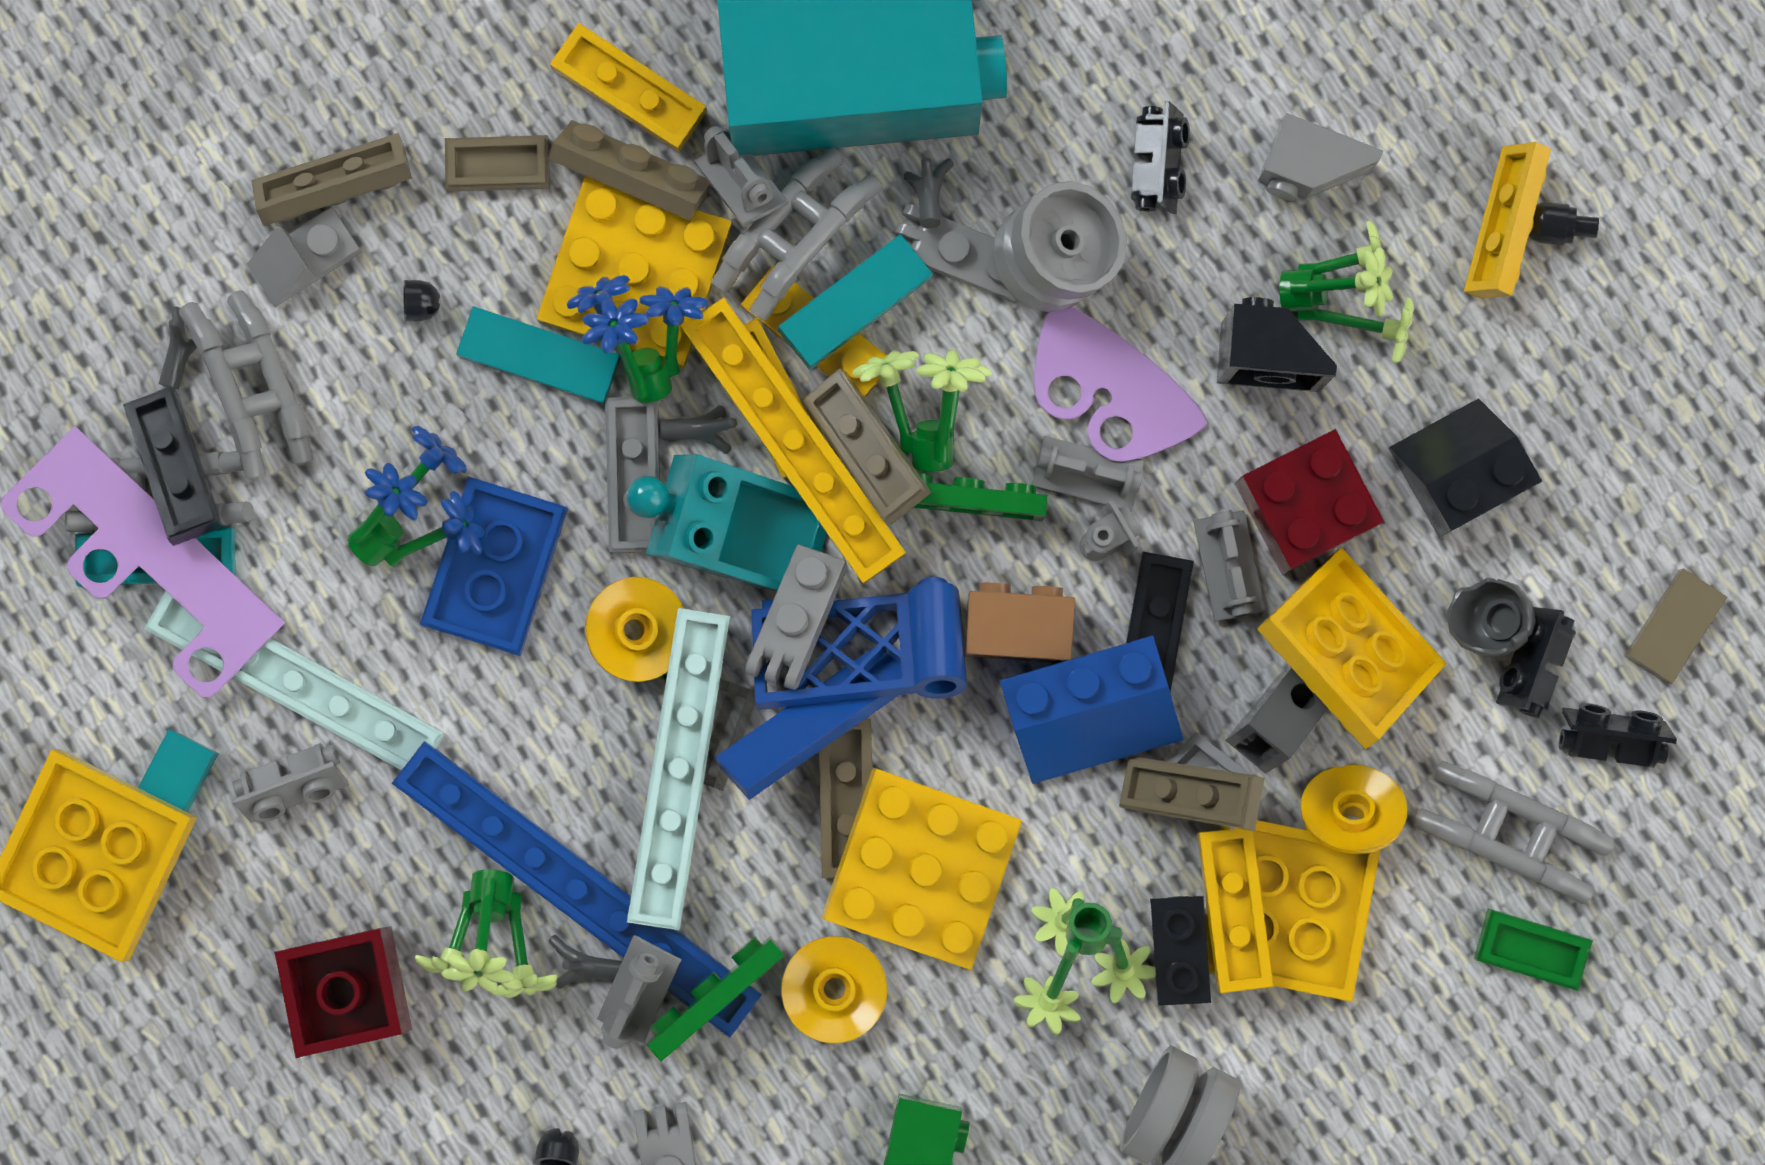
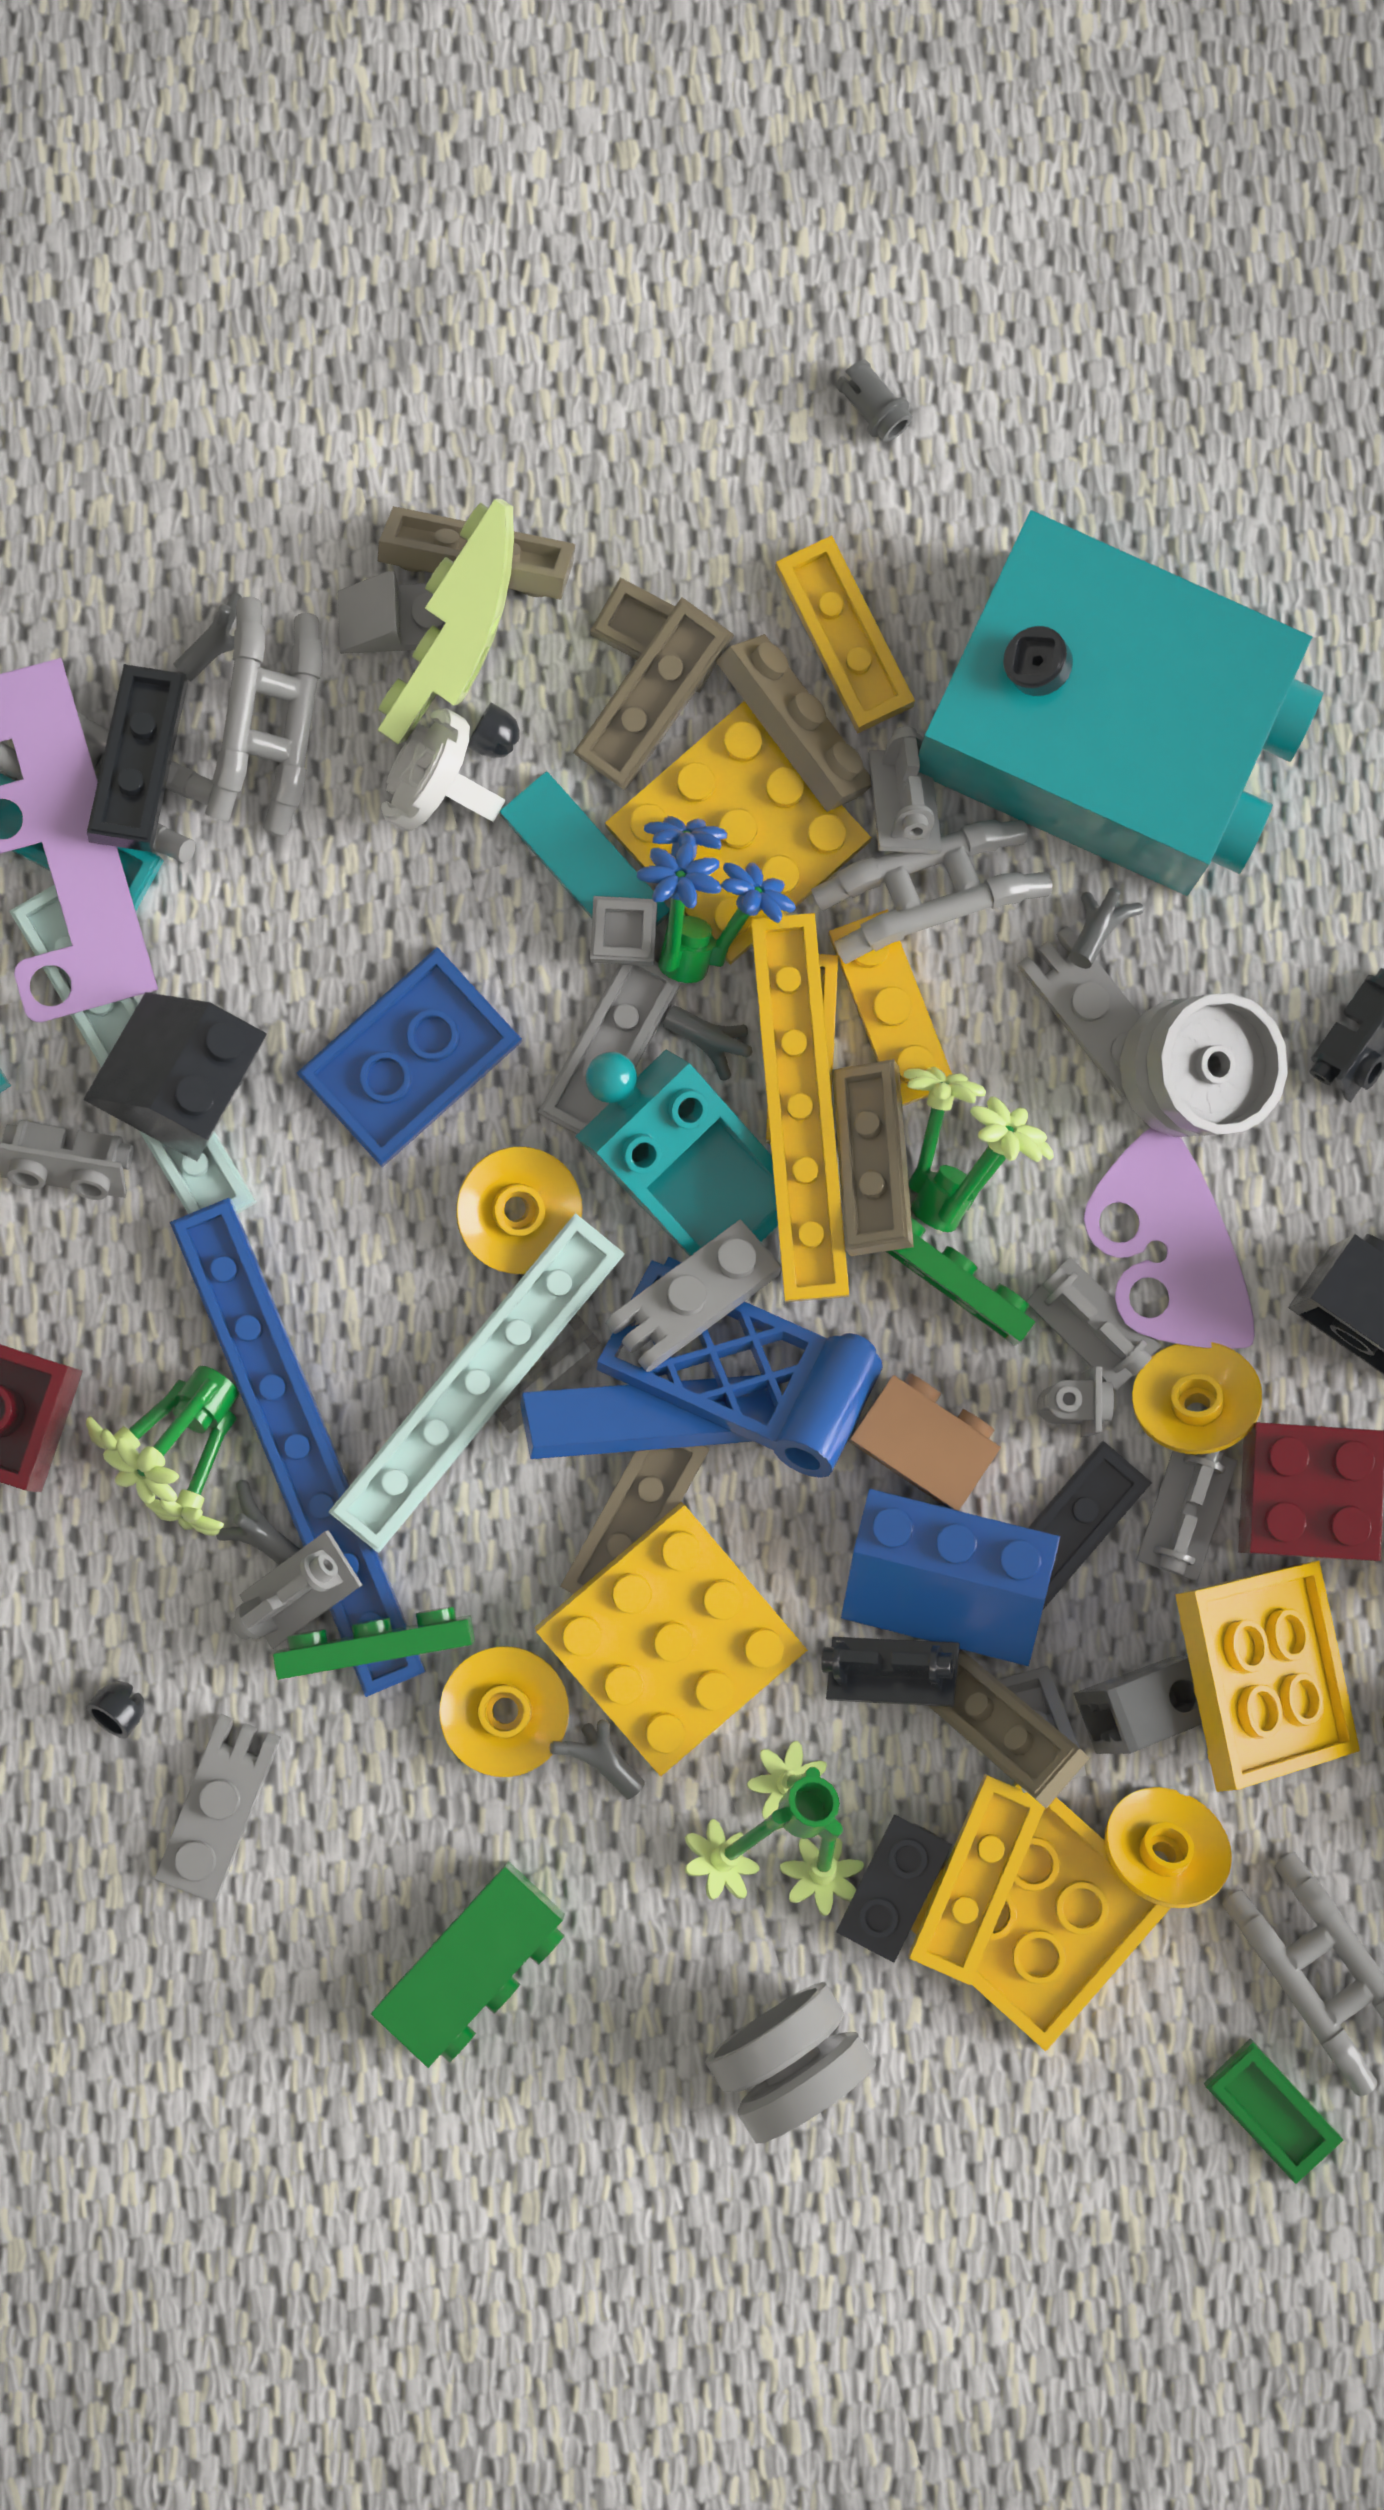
camera: 35 degrees right, 0 degrees up
(332, 672) = (176, 1070): none -> black slope
(347, 216) = (470, 602): none -> yellowish green slope
(381, 533) = (311, 953): blue plant -> none
(388, 354) = (429, 771): none -> white tile
(517, 207) = (653, 693): none -> dark tan tile
(595, 388) = (623, 931): none -> light grey tile
(778, 28) = (1038, 661): none -> black tile
(855, 302) = (951, 998): teal tile -> none
(923, 980) = (602, 1756): none -> dark grey bar
(1089, 800) = (891, 1671): none -> black hinge
(1175, 470) = (1191, 1375): none -> yellow dish

